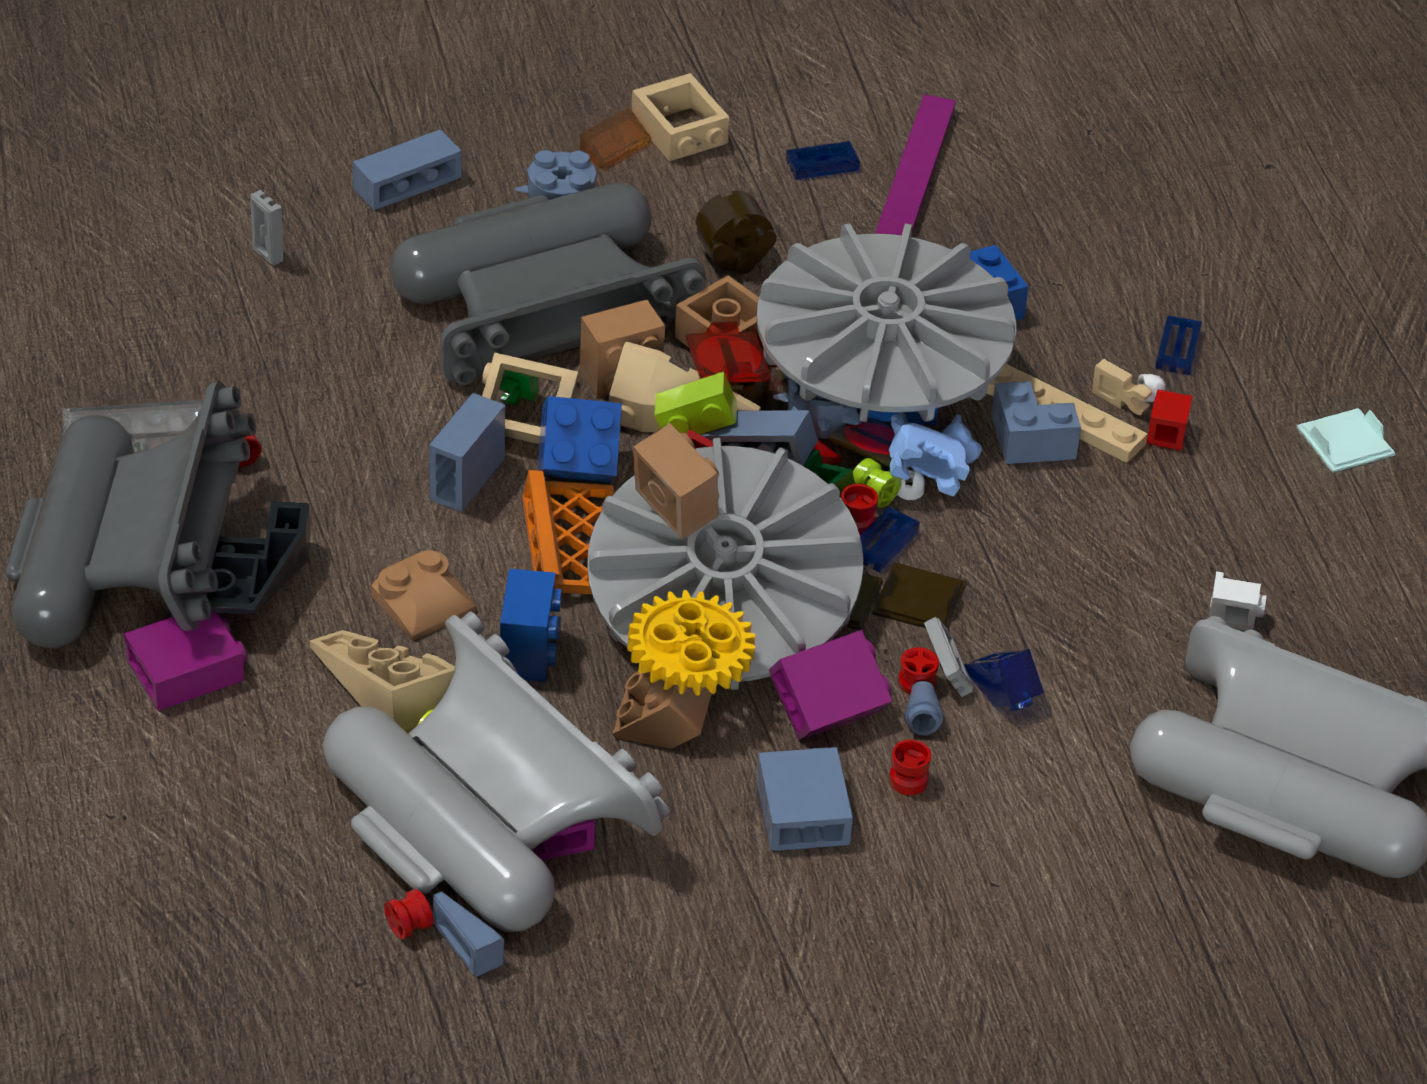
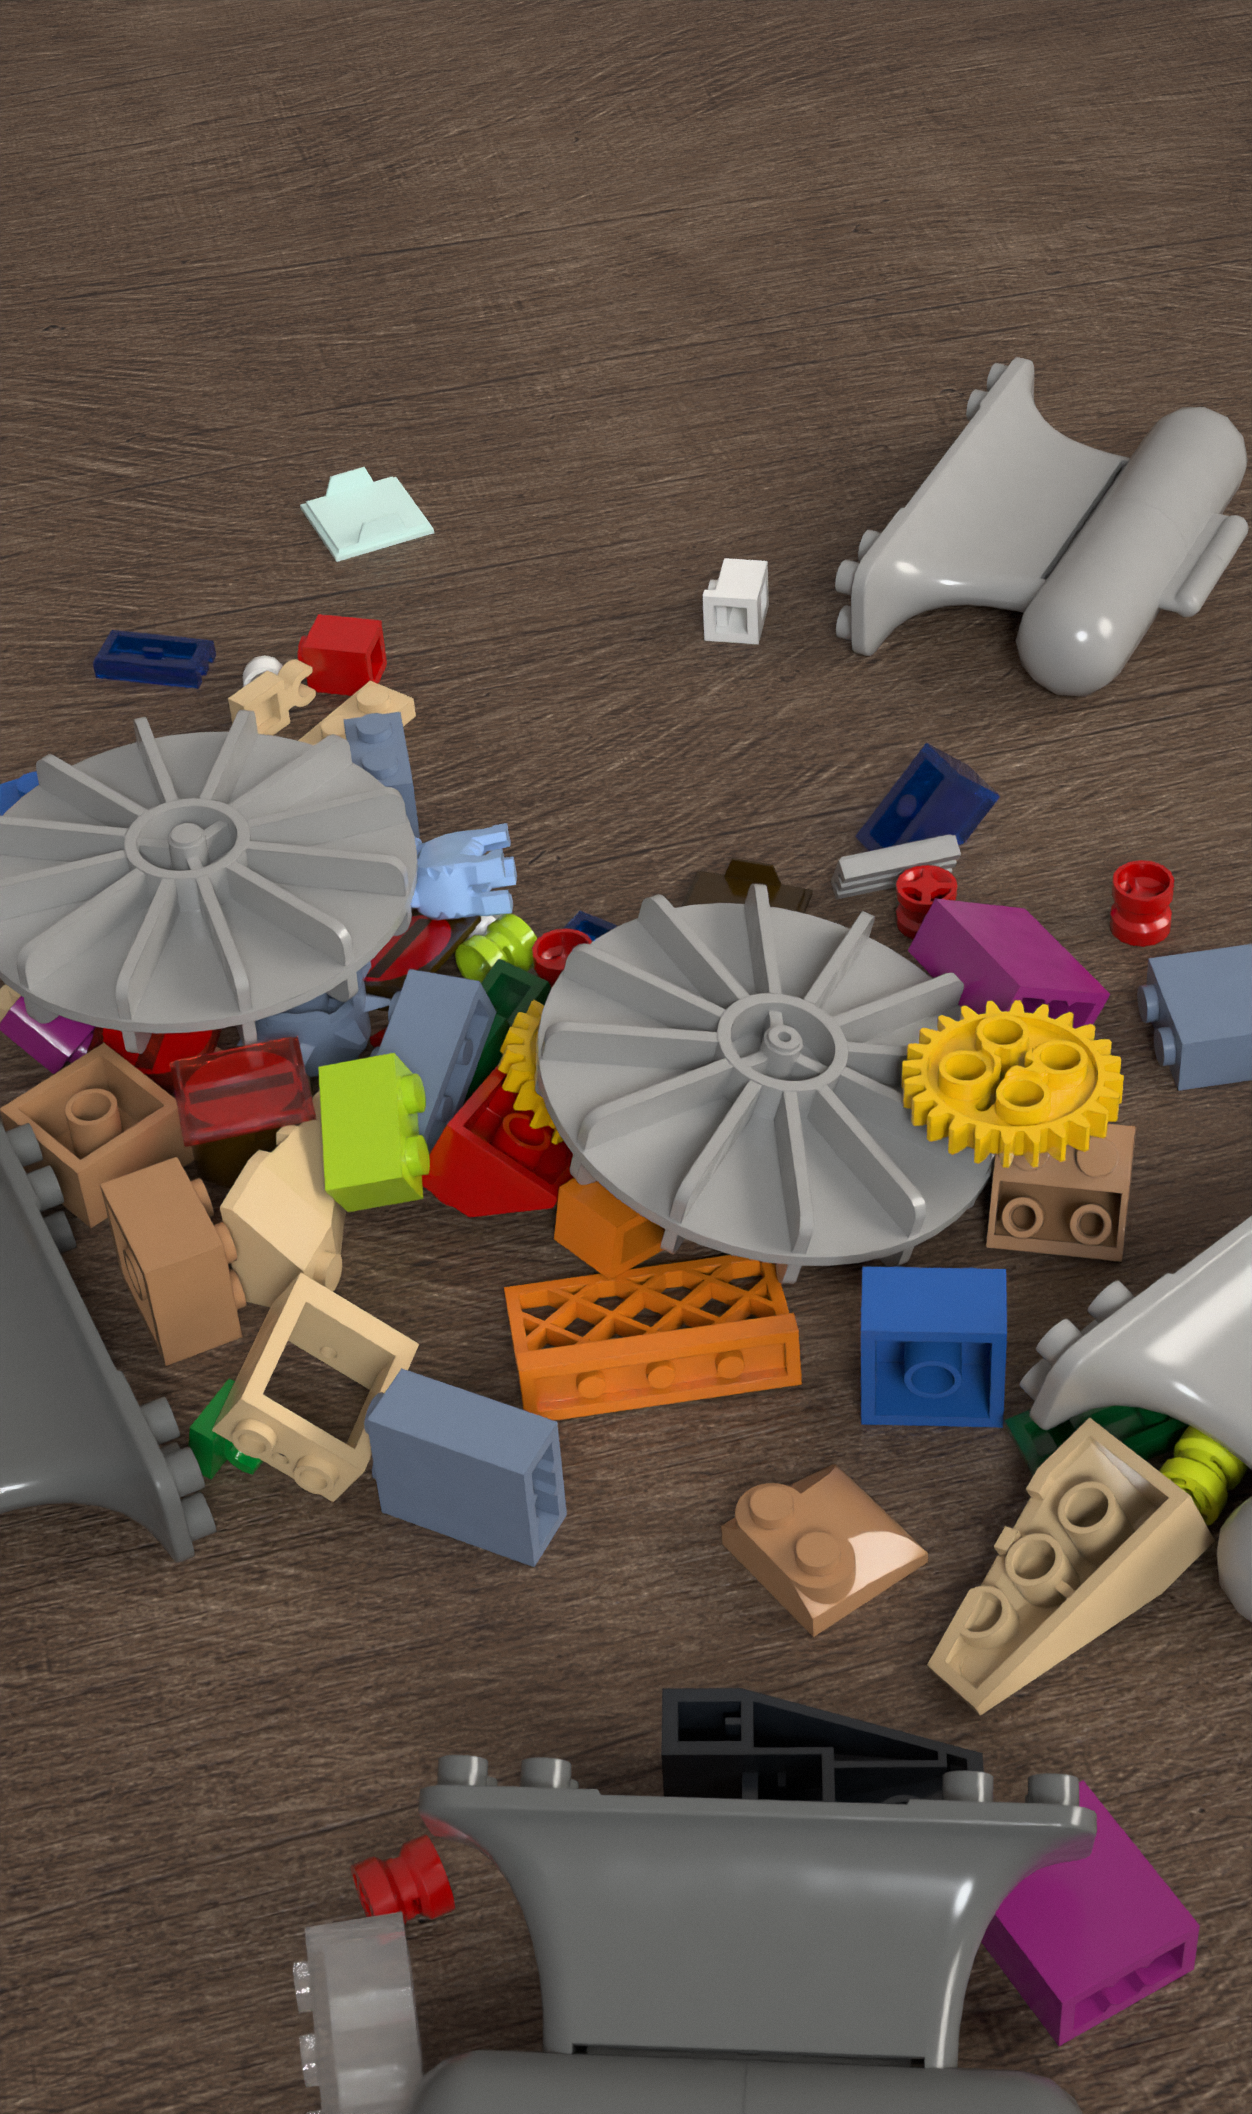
camera: 85 degrees left, 0 degrees up
(579, 439) = (443, 1296): blue brick -> none
(676, 480) = (709, 1045): medium nougat brick -> none
(923, 709) = (1009, 887): sand blue cone -> none

